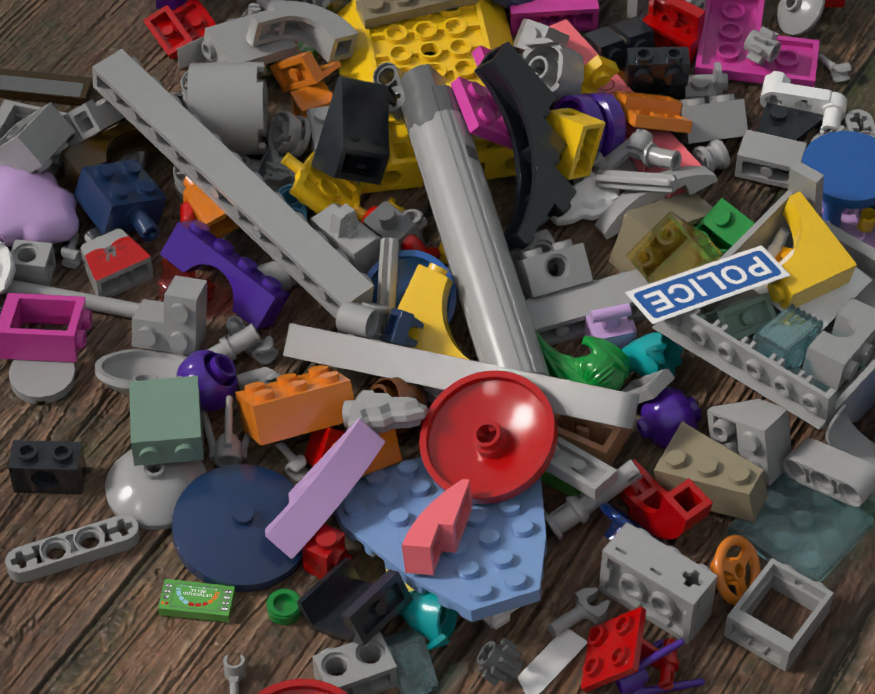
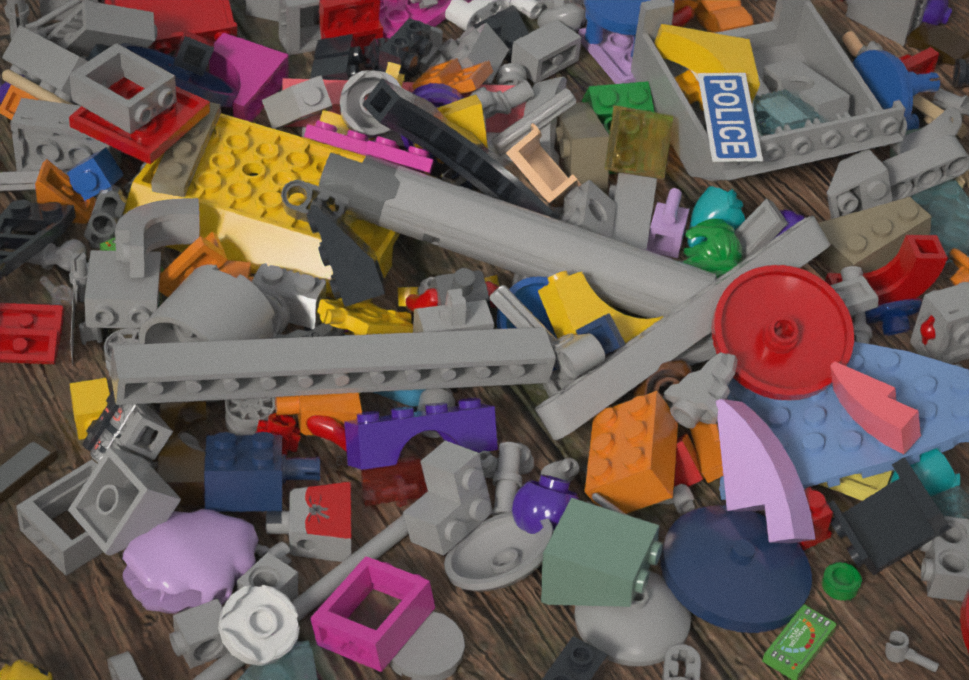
camera: 65 degrees left, 5 degrees down
(173, 201) = (284, 426): none -> red gear
(598, 215) = (541, 169): none -> light nougat piece

